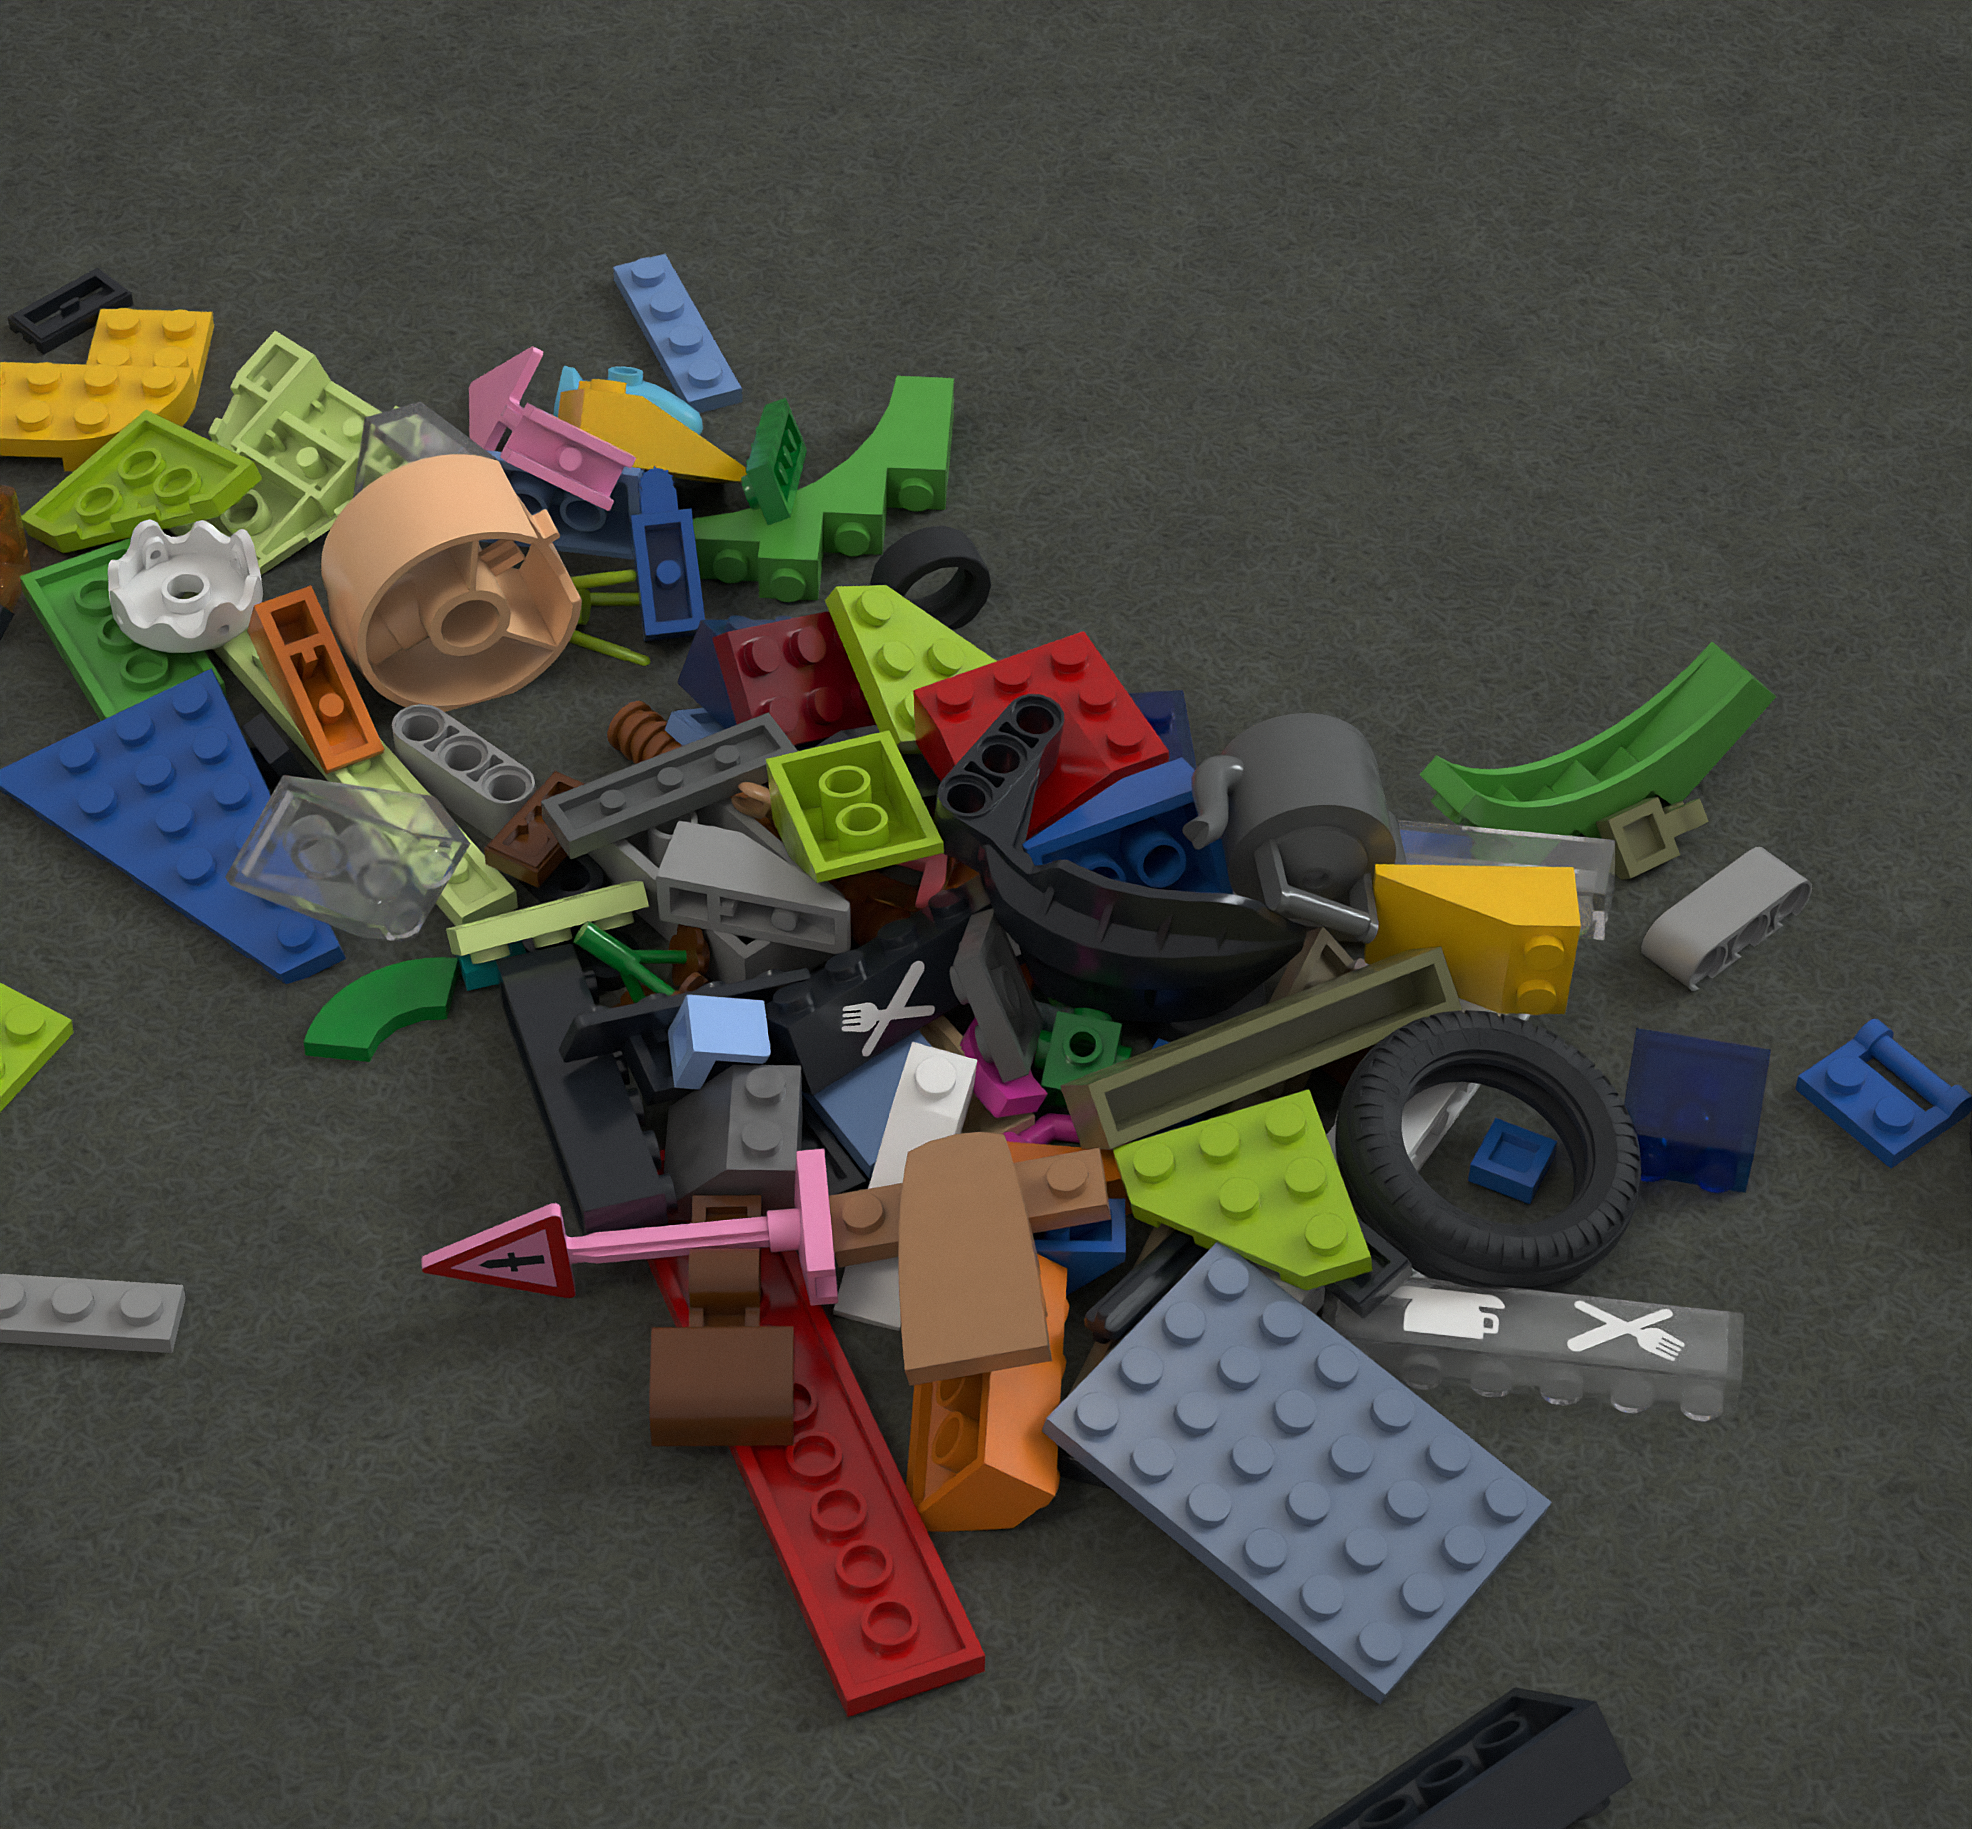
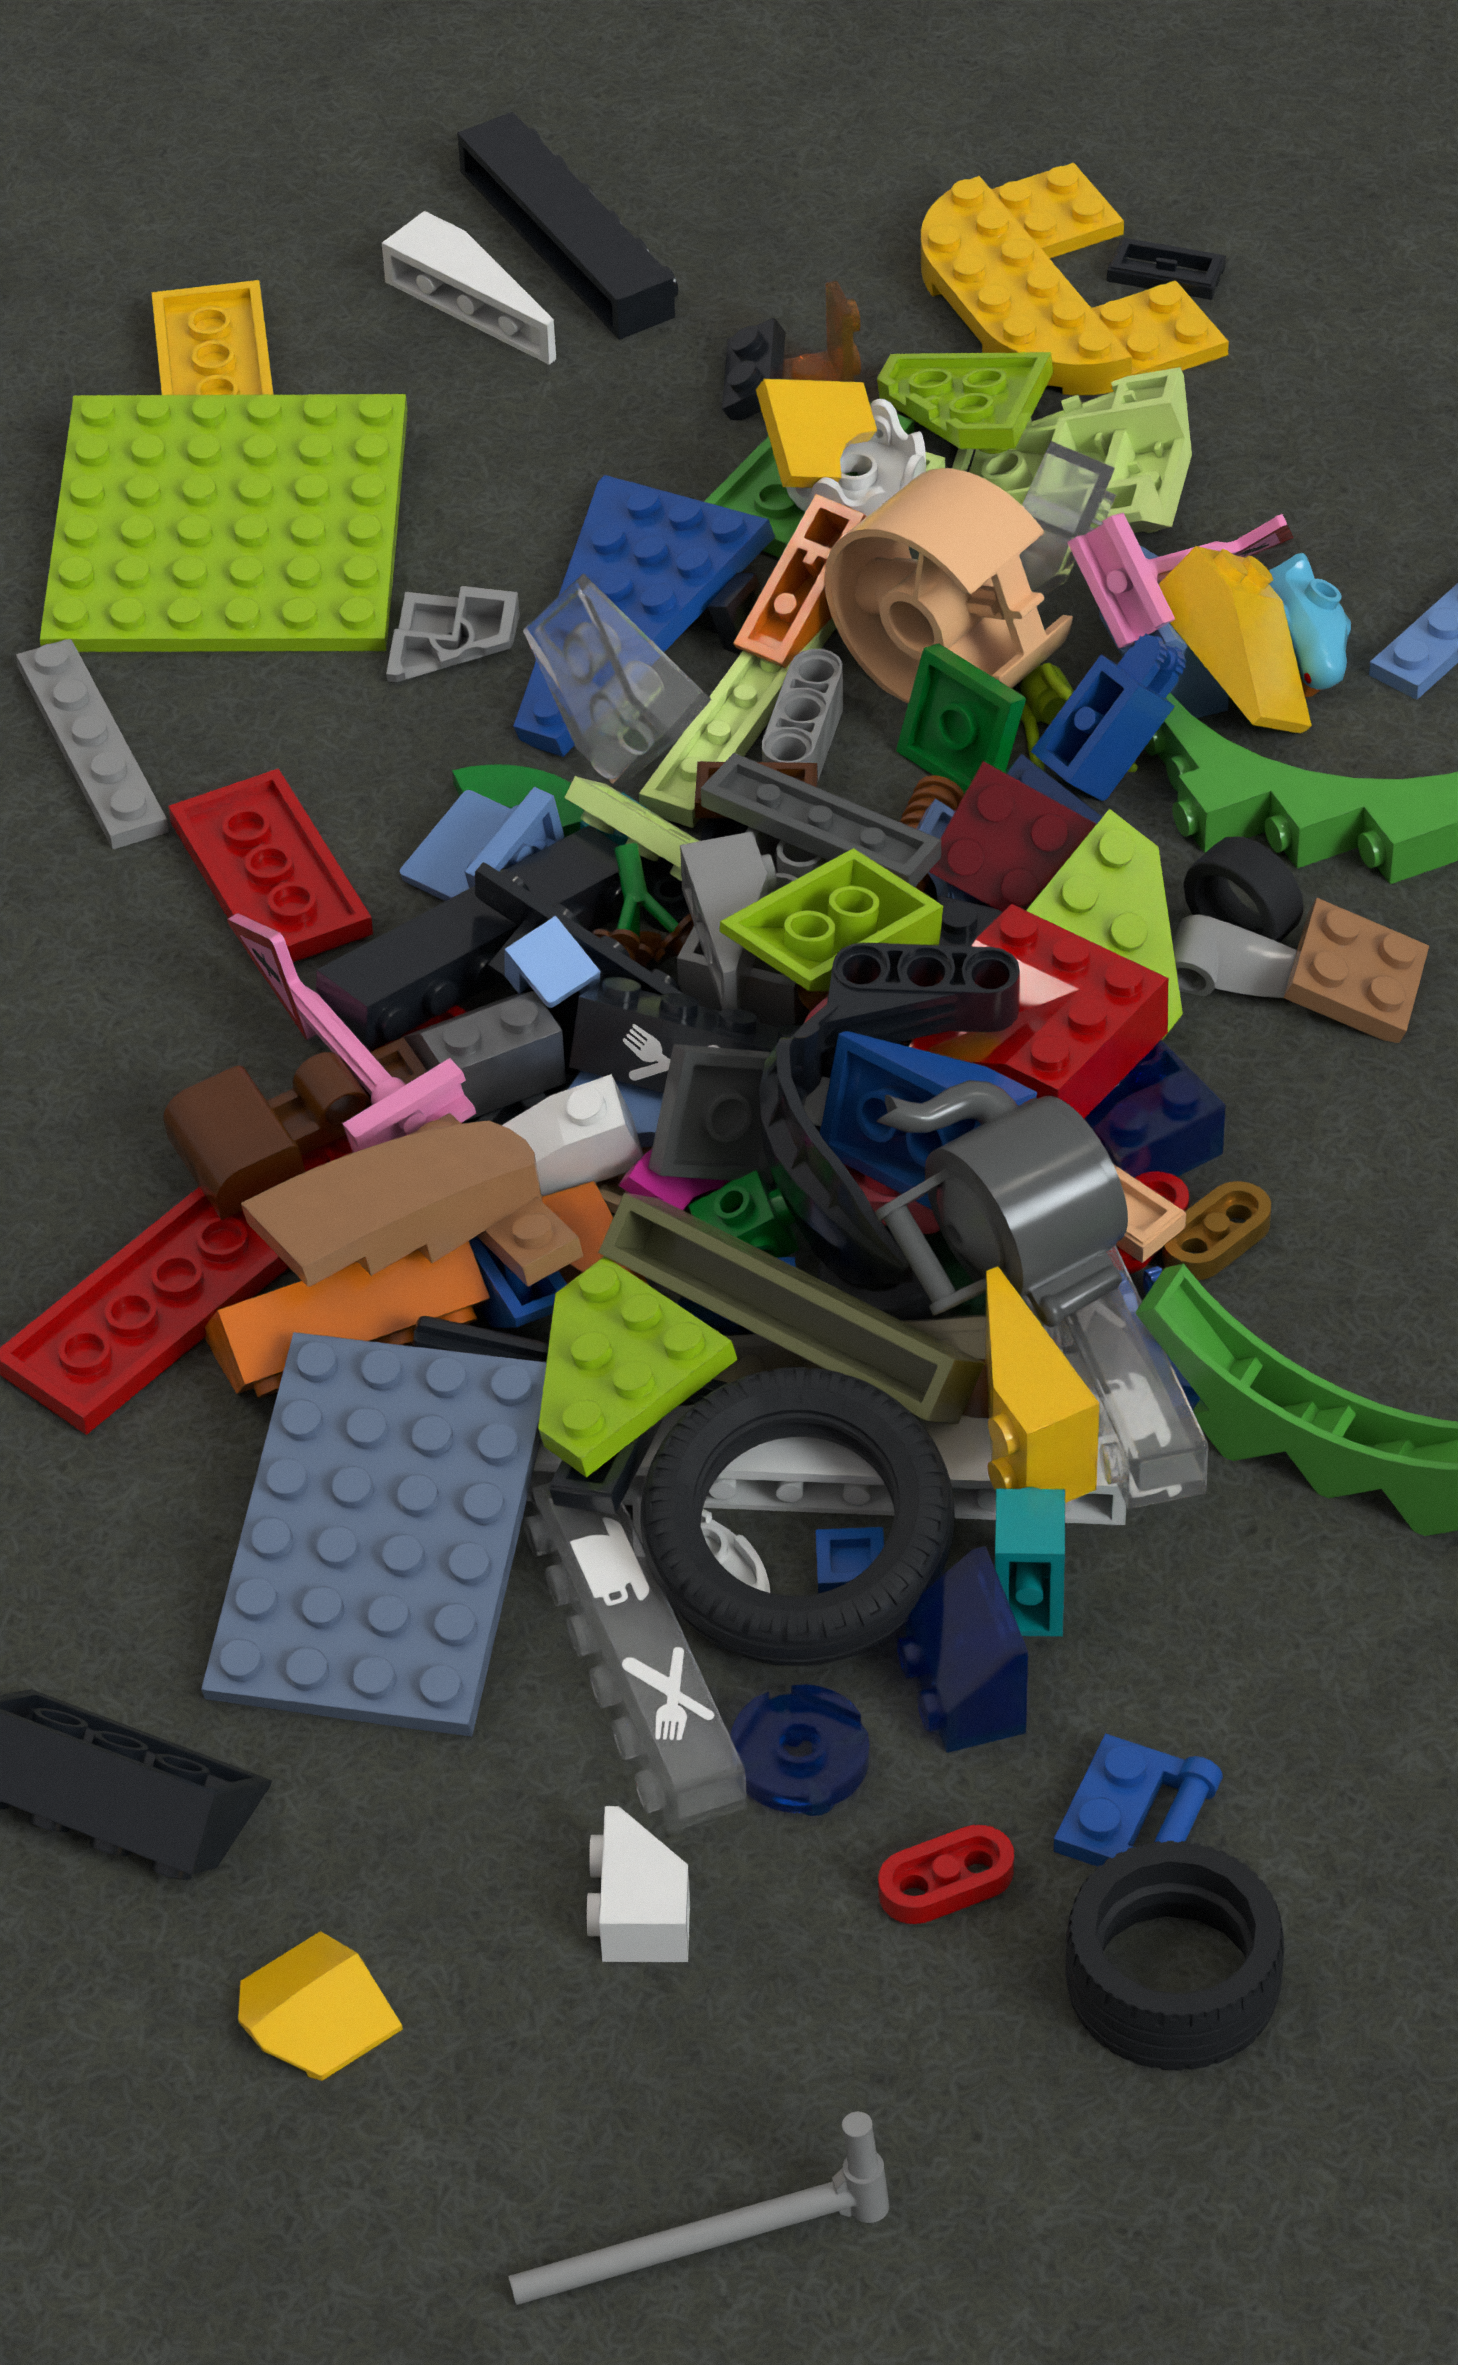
camera: 65 degrees right, 0 degrees up
(113, 952) = (451, 630): none -> light grey slope
(142, 579) = (813, 425): none -> yellow tile
(320, 1231) = (271, 864): none -> red plate
(448, 1057) = (481, 832): none -> medium blue bracket
(577, 661) = (958, 718): none -> green plate
(774, 463) = (1293, 728): green plate -> none
(999, 616) = (1229, 958): none -> light grey piece
(1054, 563) = (1356, 971): none -> medium nougat plate
(1609, 1008) = (1032, 1557): none -> teal brick
(1647, 833) = (1332, 1512): olive plate -> none
(1724, 916) = (1271, 1608): light grey beam -> none
(1728, 1255) = (807, 1782): none -> clear blue plate
(1807, 1751) = (316, 2007): none -> yellow slope
(1815, 1452) = (642, 1894): none -> white slope
(1897, 1244) = (943, 1875): none -> red plate

